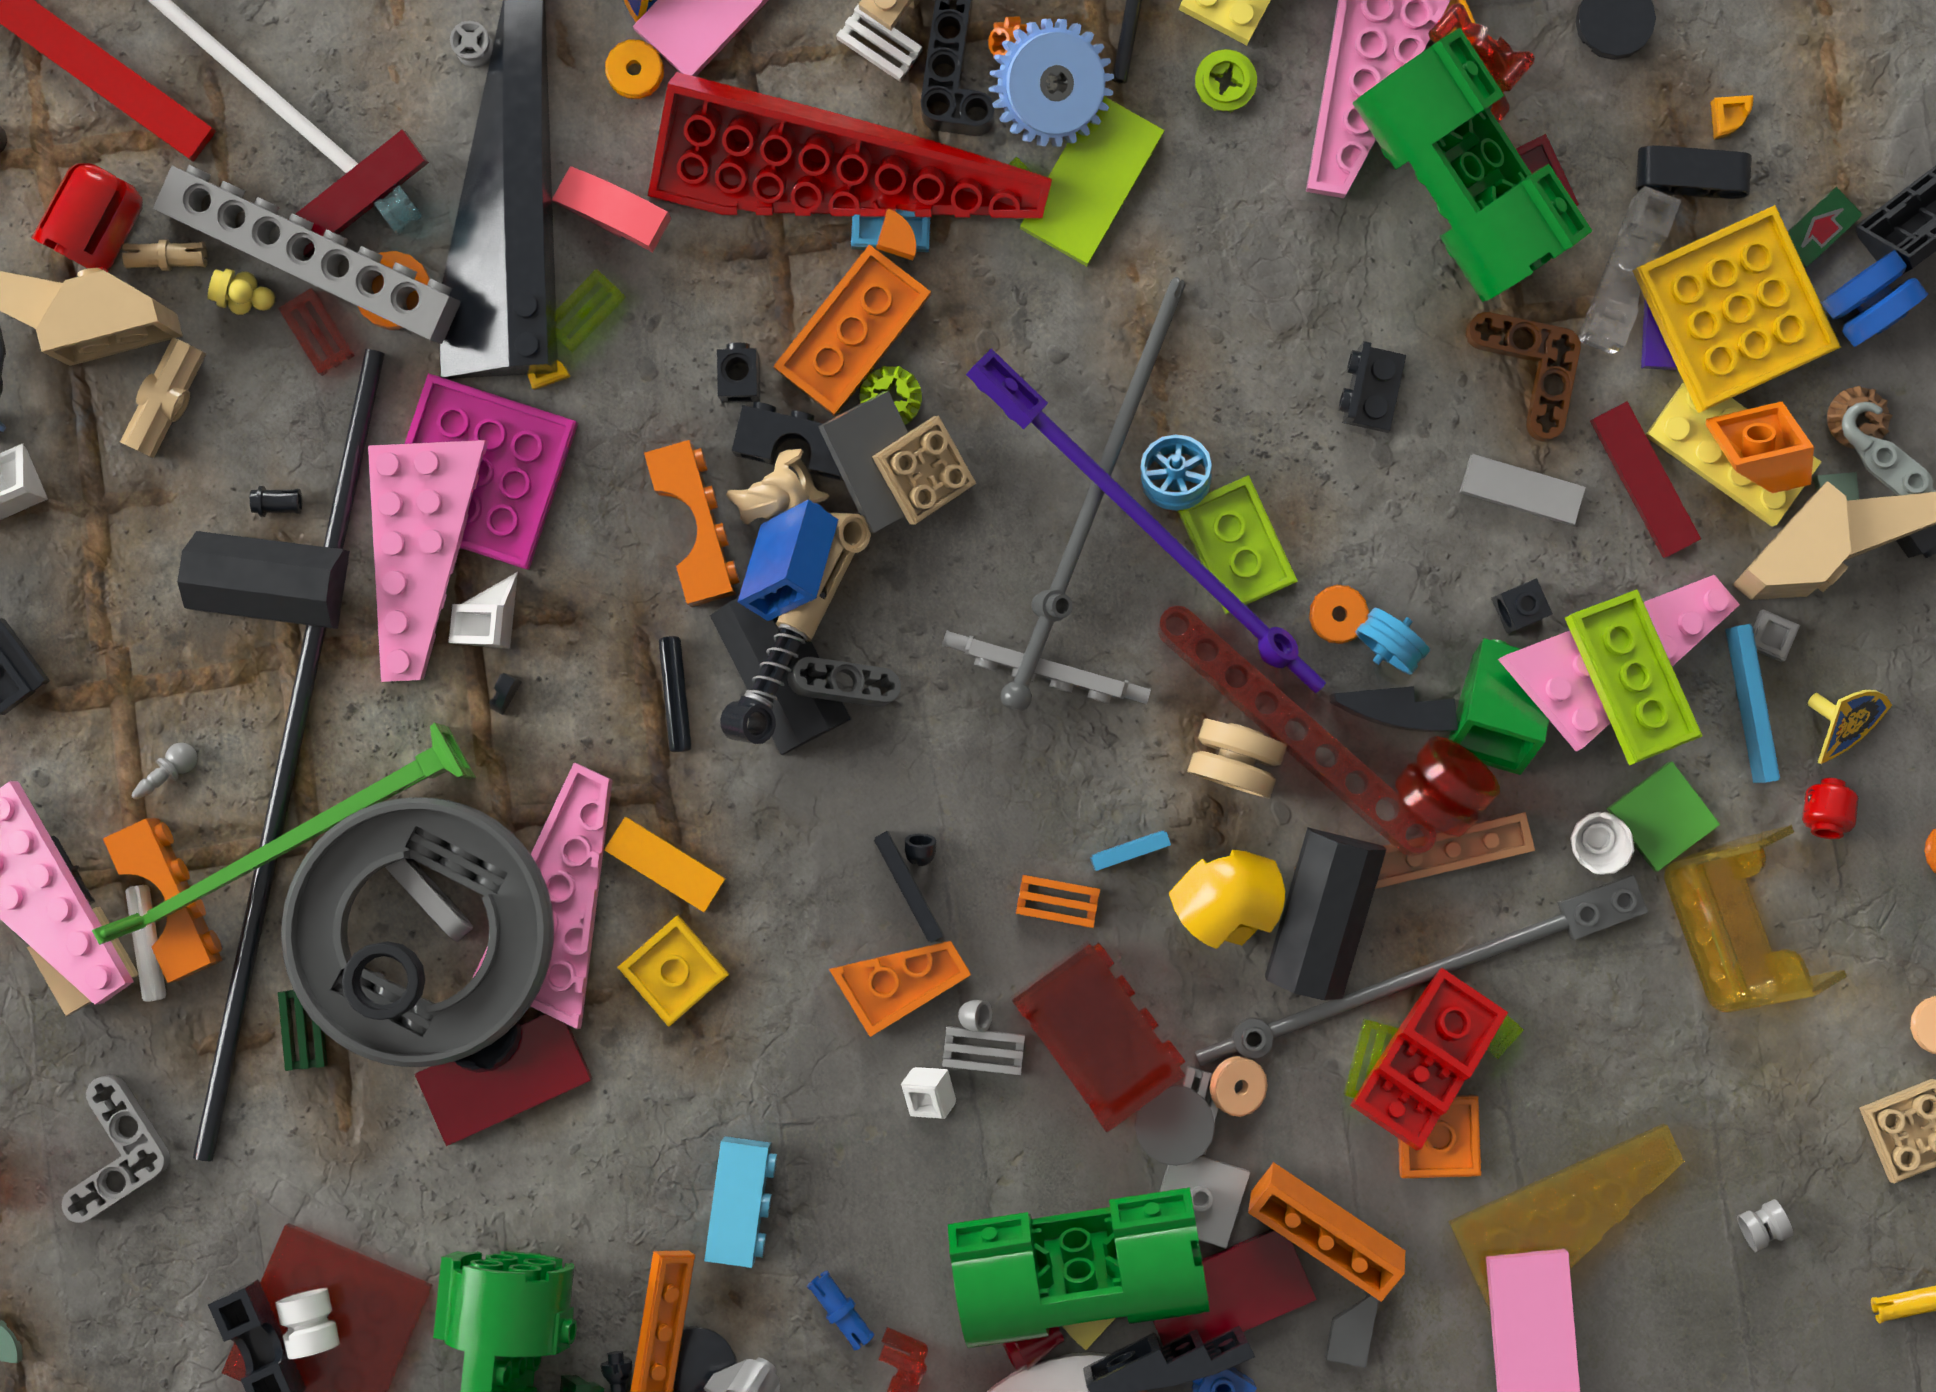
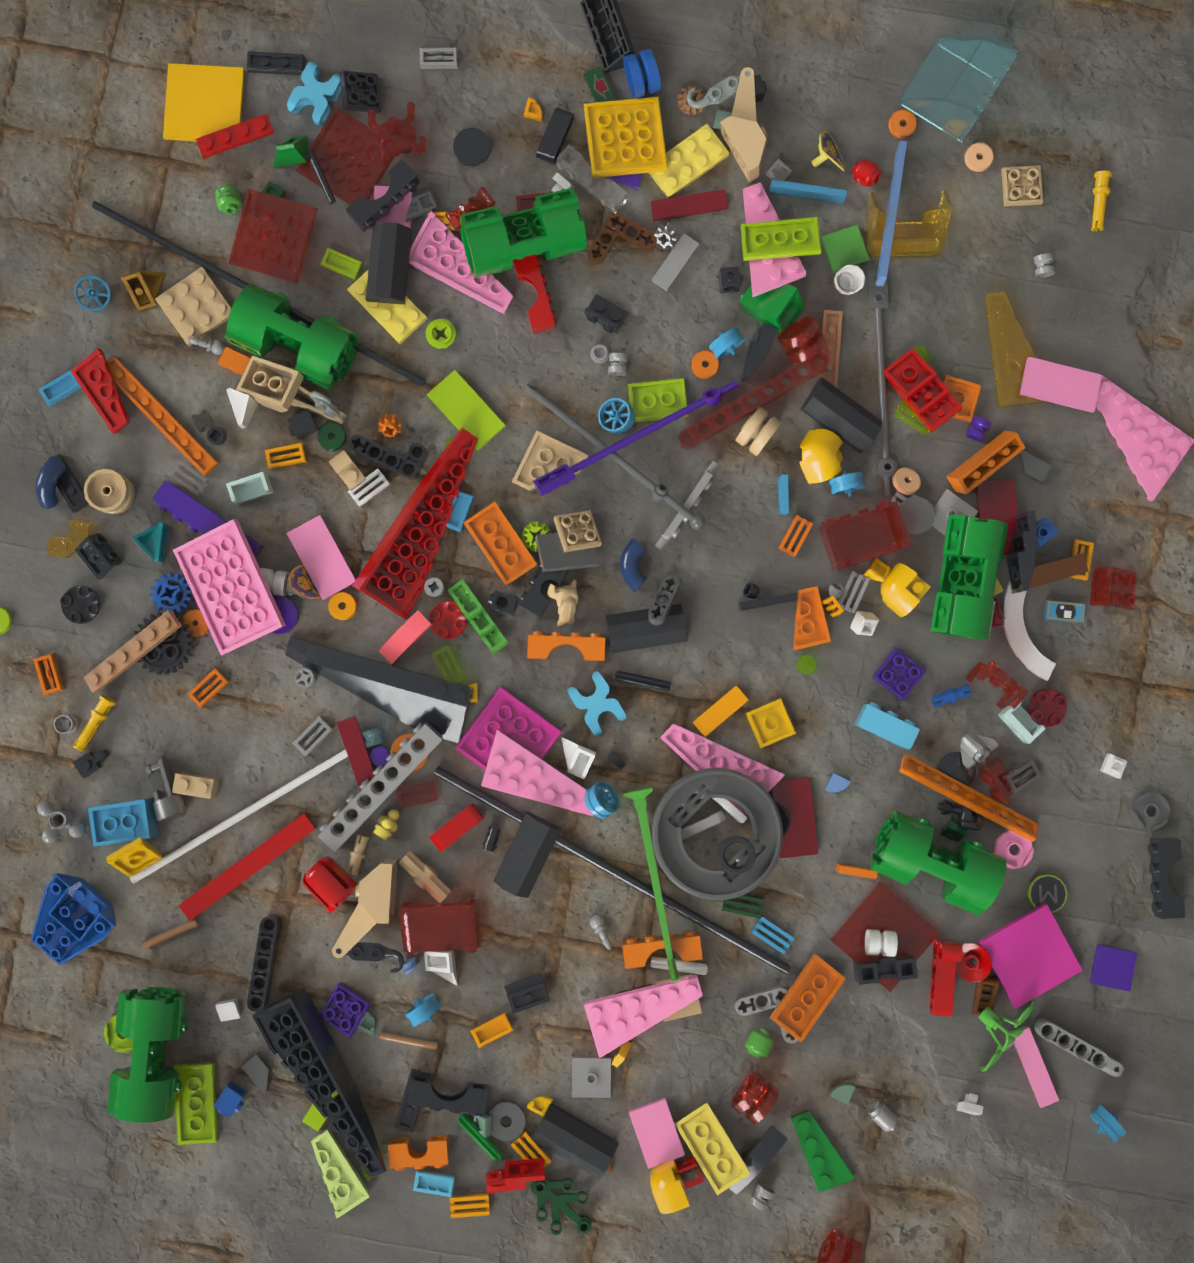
camera: 80 degrees left, 0 degrees up
(41, 1147) = (759, 1043): none -> bright green head
(74, 458) = (440, 927): none -> clear red windscreen
(157, 1213) = (807, 998): none -> orange plate
(252, 1138) = (786, 944): none -> dark azure tile
(276, 426) = (456, 827): none -> red beam
(369, 233) = (379, 755): none -> dark purple tile
(395, 111) = (324, 725): none -> light grey tile
(430, 695) = (601, 798): none -> dark azure wheel
(435, 1227) = (856, 871): none -> orange tile
(475, 950) = (732, 810): none -> white tile
(596, 1138) = (836, 783): none -> medium blue tile
(600, 618) = (596, 703): none -> medium azure piece
(672, 278) = (447, 620): none -> red dish
(697, 333) = (478, 616): none -> bright green slope
(727, 240) = (437, 589): none -> light grey wheel
(788, 560) = (600, 606): blue brick -> none
(795, 628) = (597, 581): piece -> none
(810, 1002) = (805, 664): none -> clear neon green tile
(851, 1193) = (899, 674): none -> dark purple tile
(891, 595) = (630, 565): none -> dark blue cylinder
(897, 236) = (463, 508): orange tile -> none
(938, 1017) = (832, 606): none -> light orange tile
(1018, 1146) = (902, 589): none -> yellow brick
(1041, 1086) = (877, 571): none -> yellow slope
(1050, 358) = (543, 457): none -> tan plate
(1078, 81) = (404, 408): light blue gear -> none
(1192, 968) = (847, 483): none -> dark azure wheel
(1280, 442) = (618, 364): none -> light grey wheel
(1290, 401) = (599, 353): none -> light grey plate
(1328, 259) = (540, 314): none -> red arch
(1389, 1197) = (978, 429): none -> dark purple wheel
(1568, 453) = (666, 235): none -> light grey gear
(1601, 217) = (561, 184): none -> white tile
(1762, 882) = (891, 213): none -> medium blue tile
(1765, 446) = (693, 145): orange slope -> none

